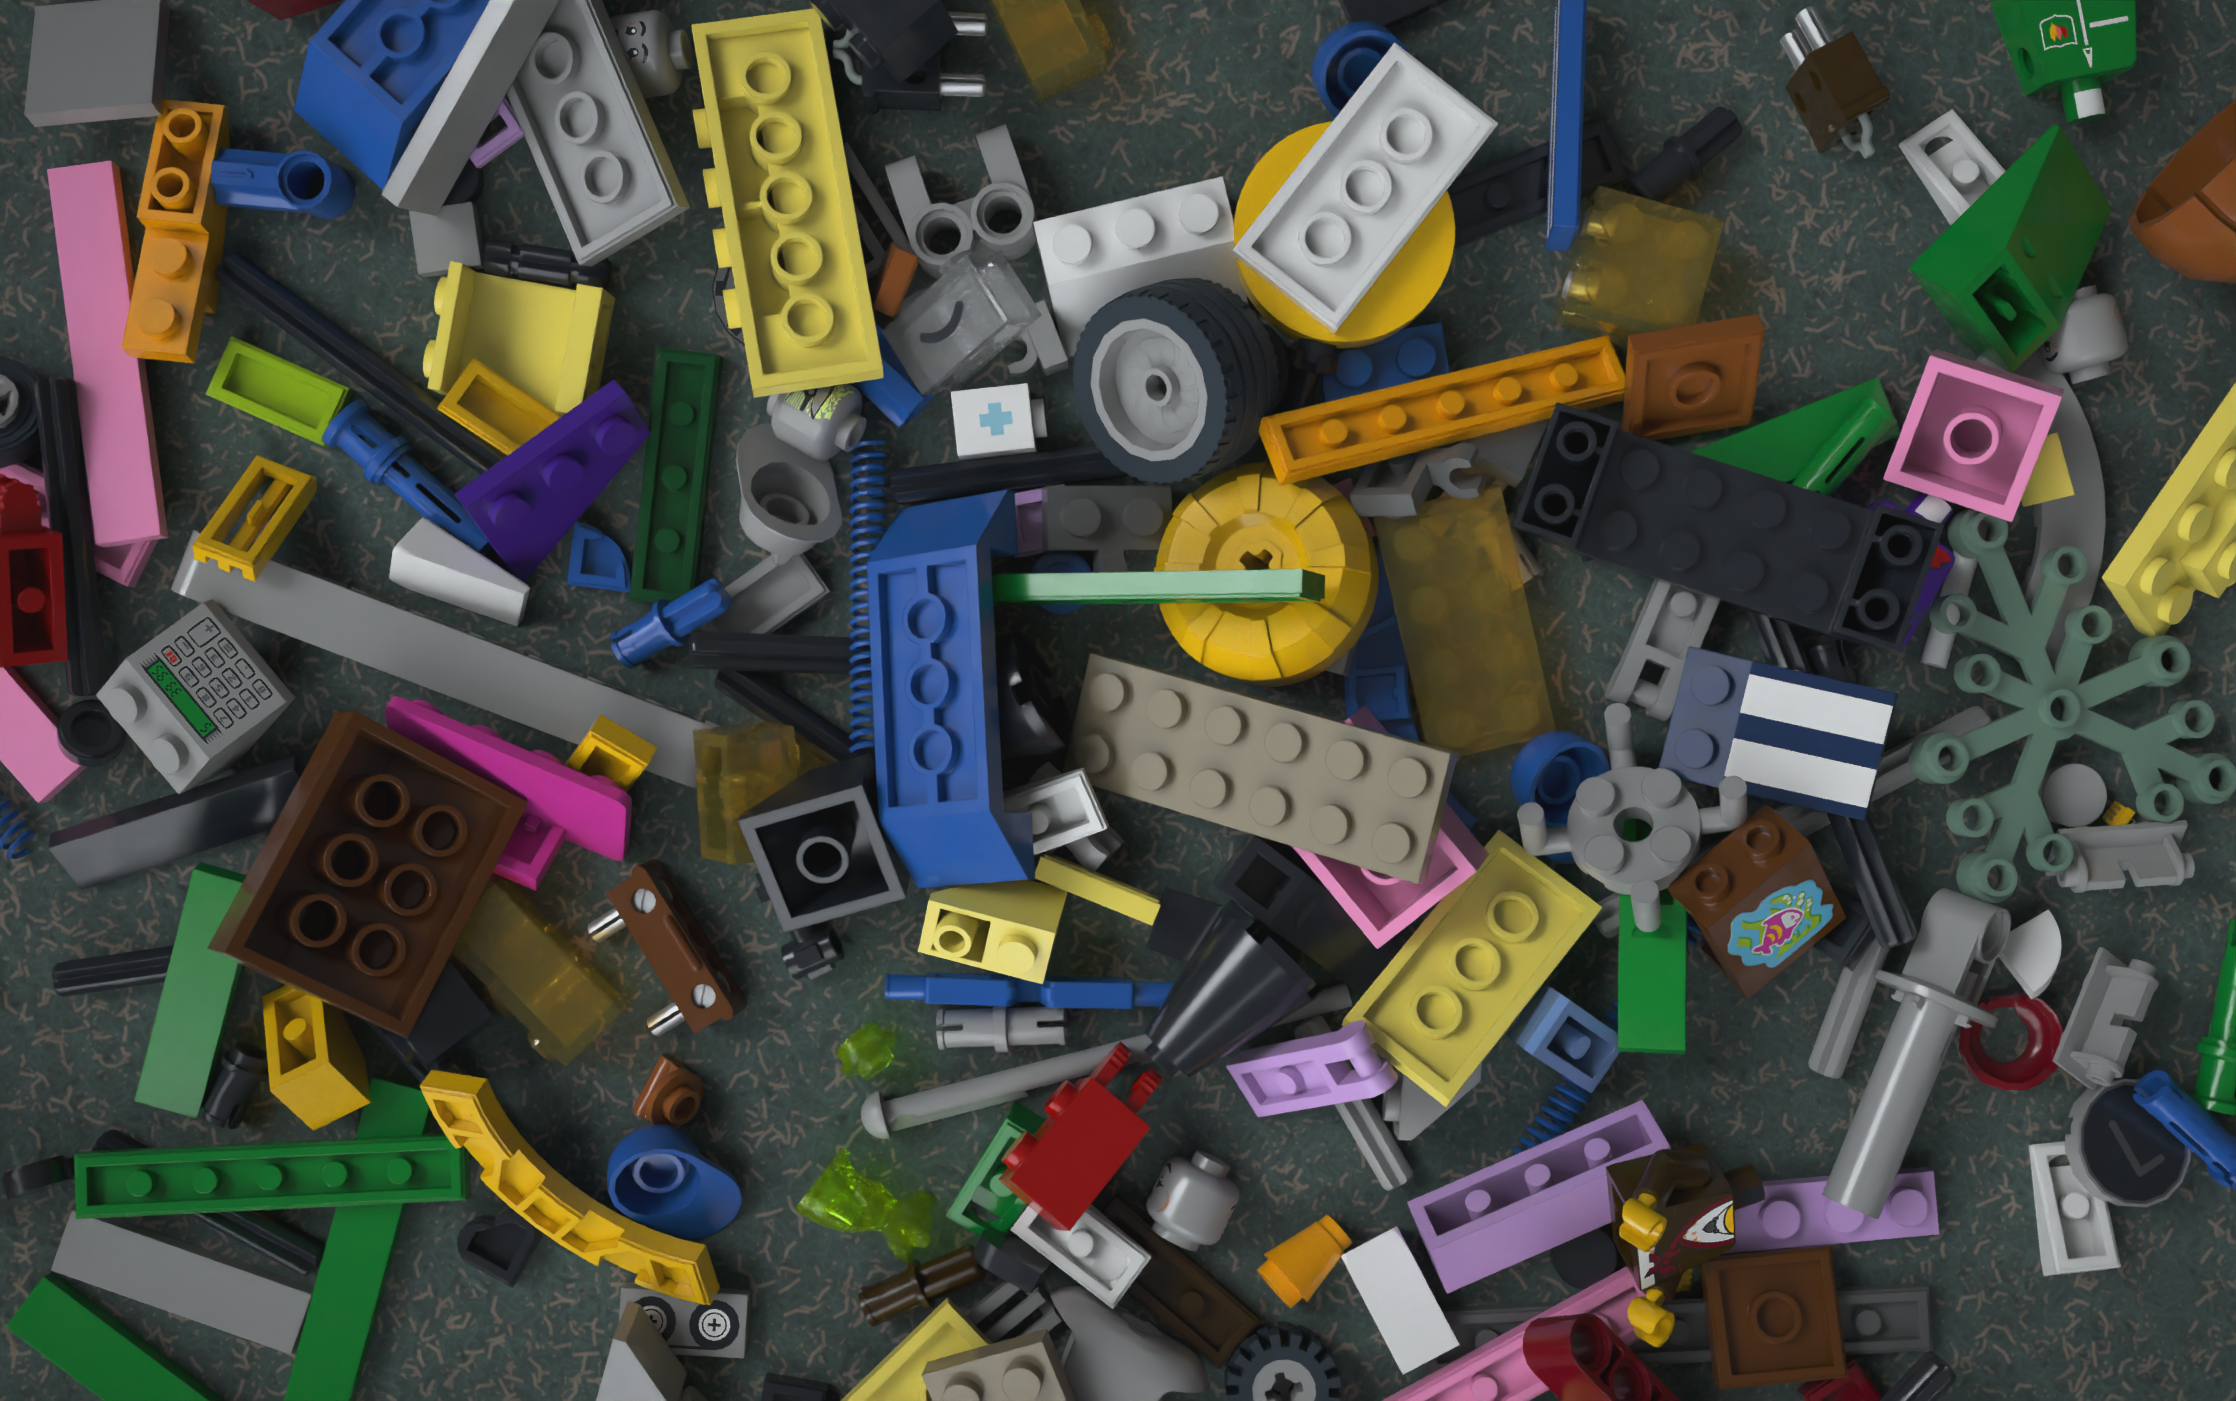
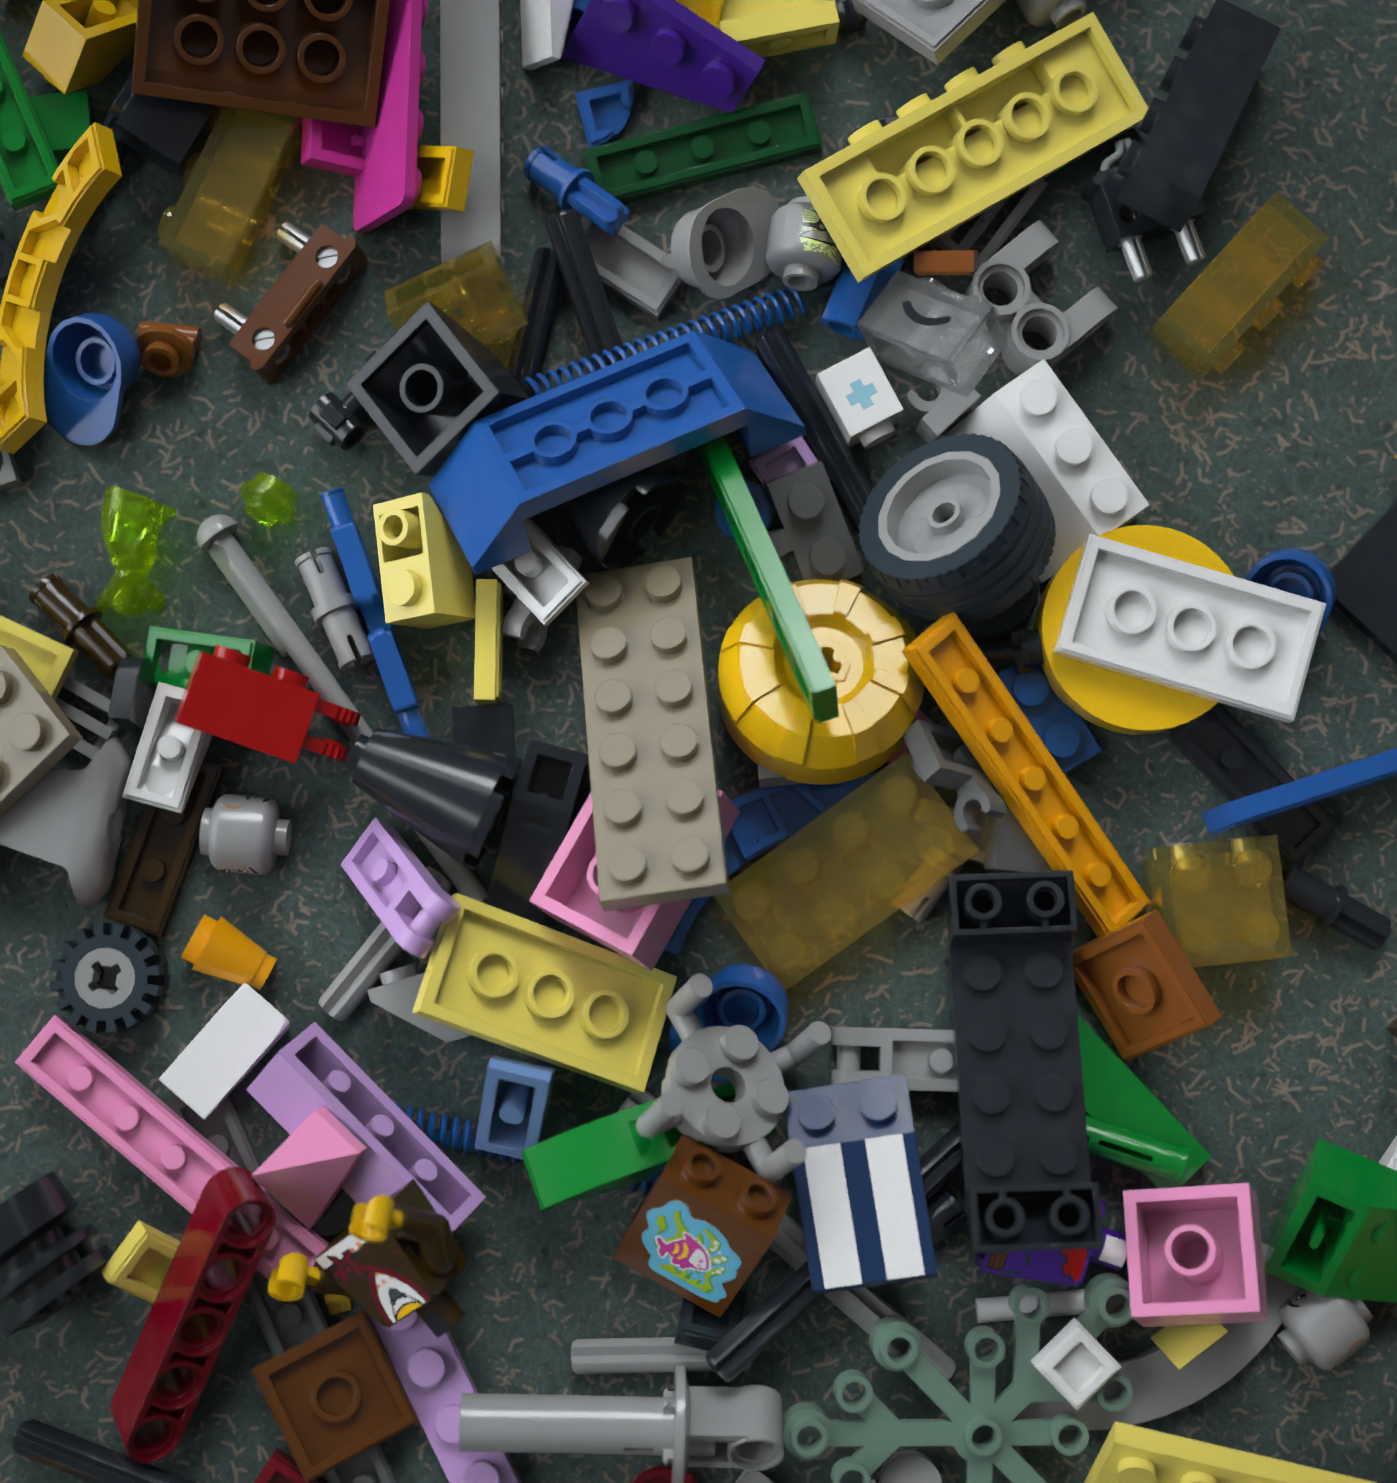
camera: 65 degrees right, 5 degrees down
(1551, 1259) = (311, 1166): none -> bright pink slope
(2028, 591) = (1075, 1364): none -> white tile

